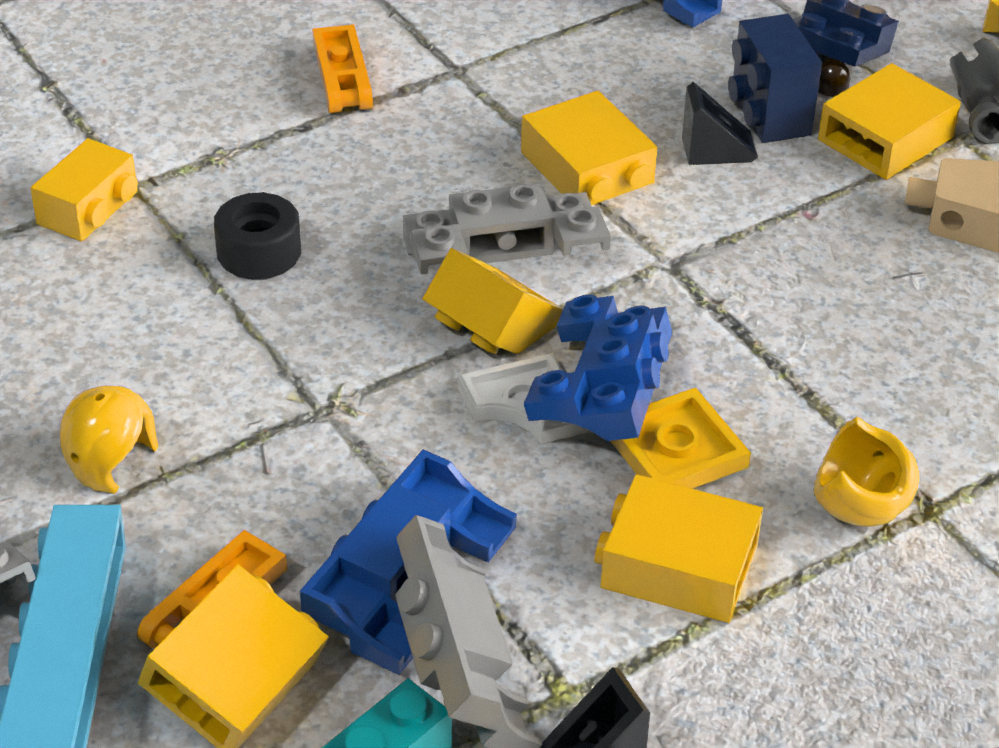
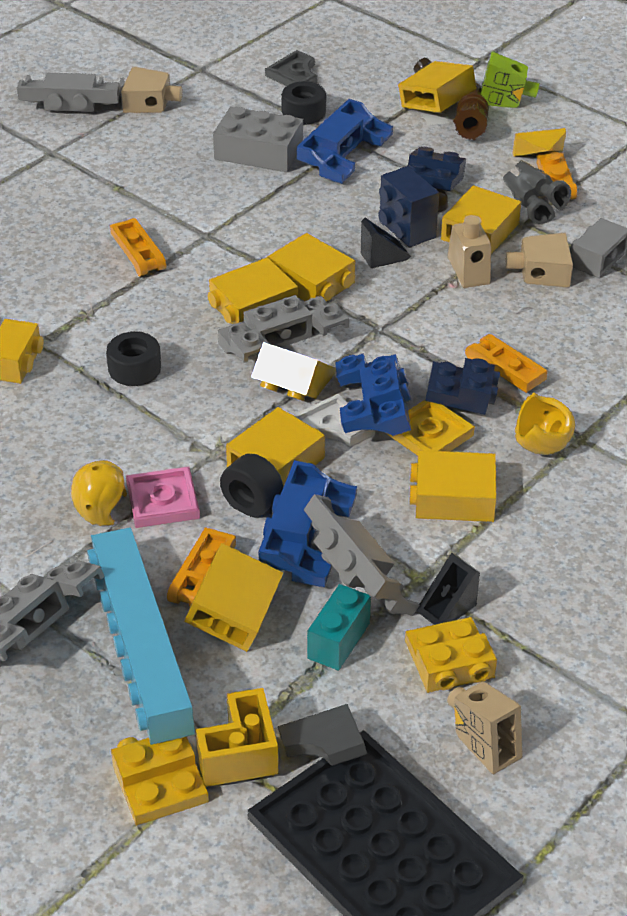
camera: 15 degrees left, 0 degrees up
(207, 465) = (162, 497): none -> bright pink tile
(343, 473) = (251, 484): none -> black tyre
(411, 411) = (280, 440): none -> yellow brick
(478, 159) = (248, 289): none -> yellow brick
(756, 382) = (465, 387): none -> dark blue plate
(848, 357) = (509, 362): none -> light orange plate
(849, 148) = (470, 243): none -> tan torso

